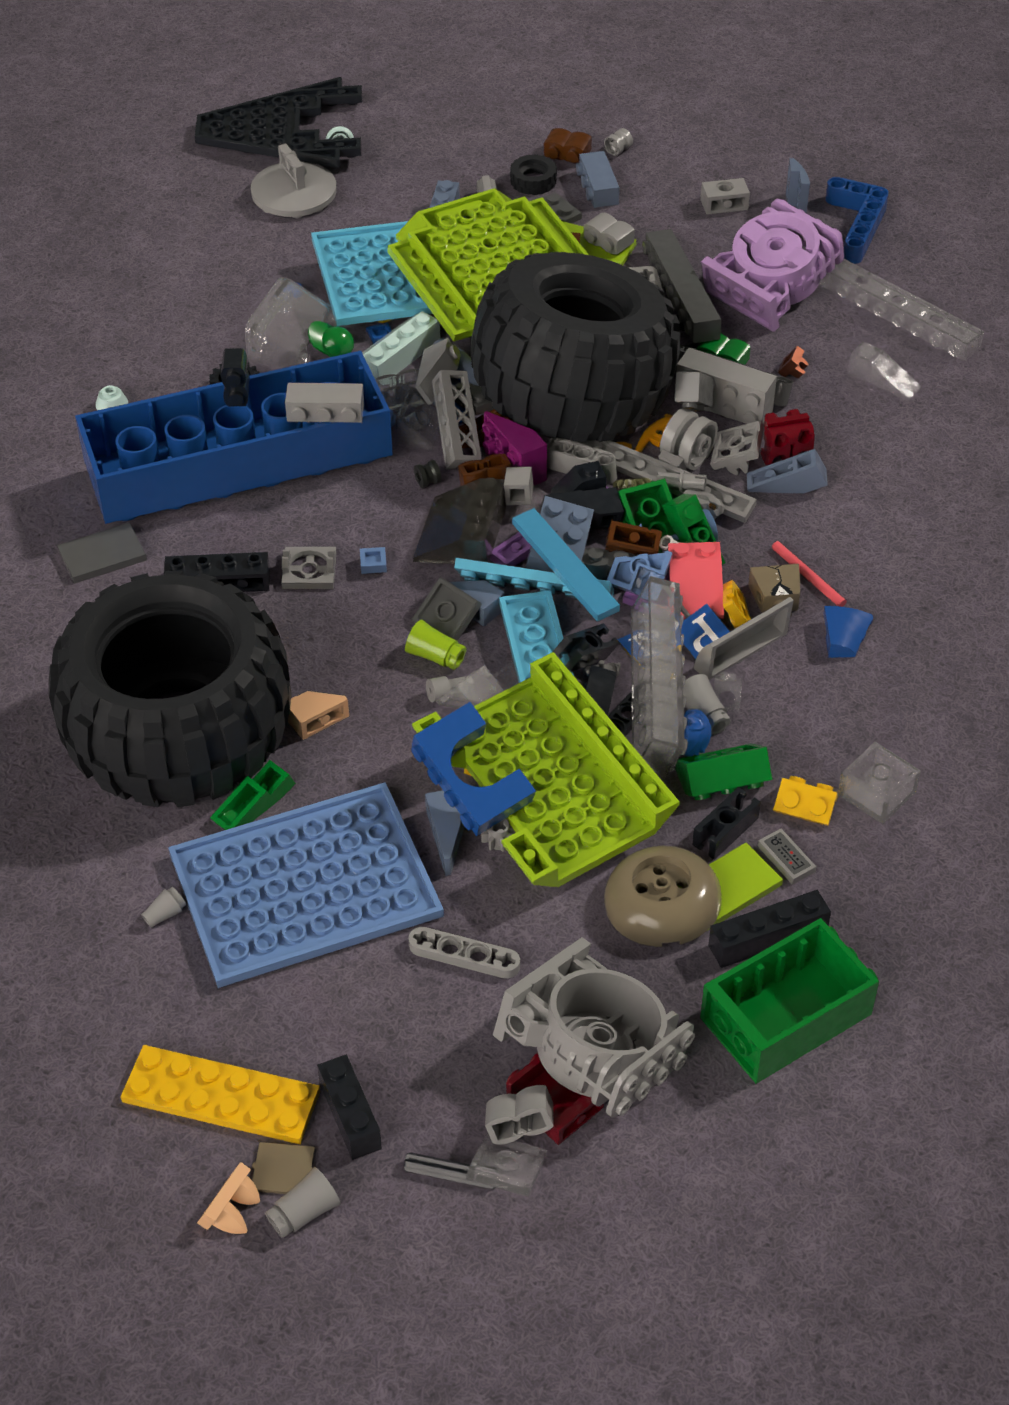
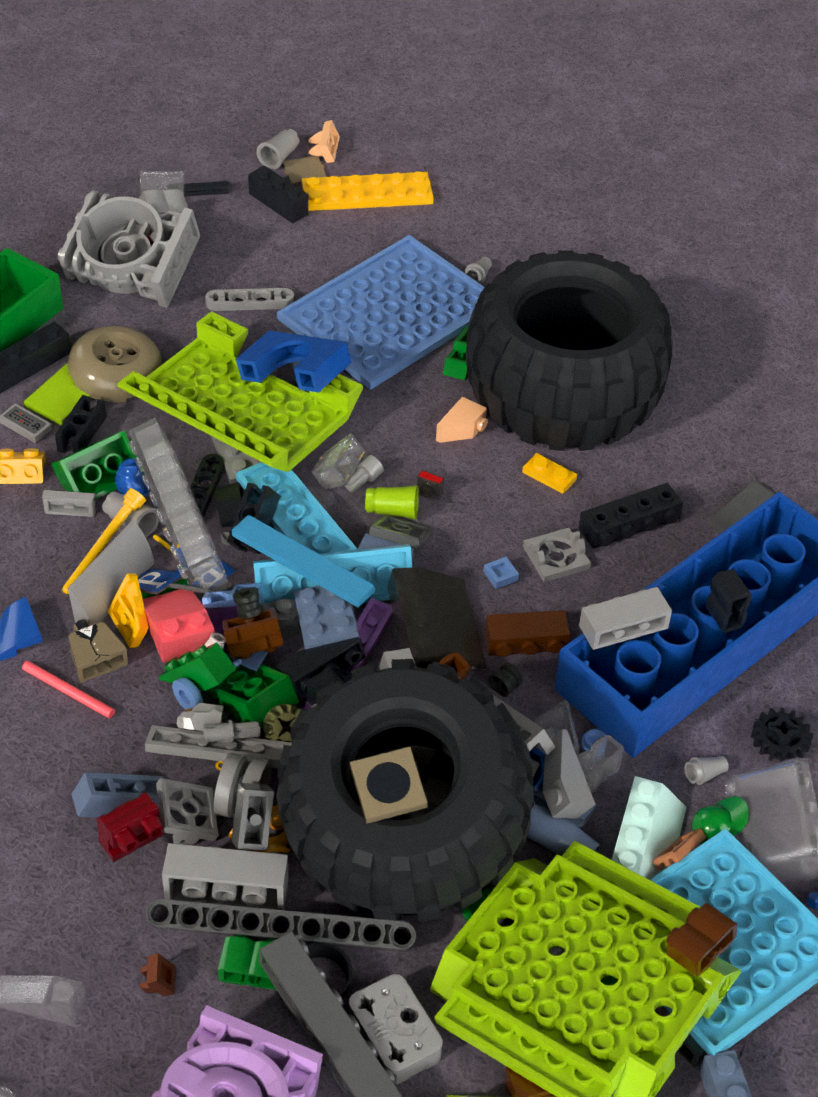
camera: 155 degrees right, 0 degrees up
(385, 502) = (526, 632): none -> reddish brown brick
(387, 309) = (679, 849): none -> nougat tile
(389, 654) = (430, 485): none -> clear smoke plate
(420, 222) = (701, 939): none -> reddish brown brick
(603, 283) = (388, 785): none -> dark tan tile
(628, 548) = (248, 602): none -> pearl dark grey wheel
(703, 682) = (131, 502): none -> yellow piece
(761, 734) = (69, 503): none -> light grey tile

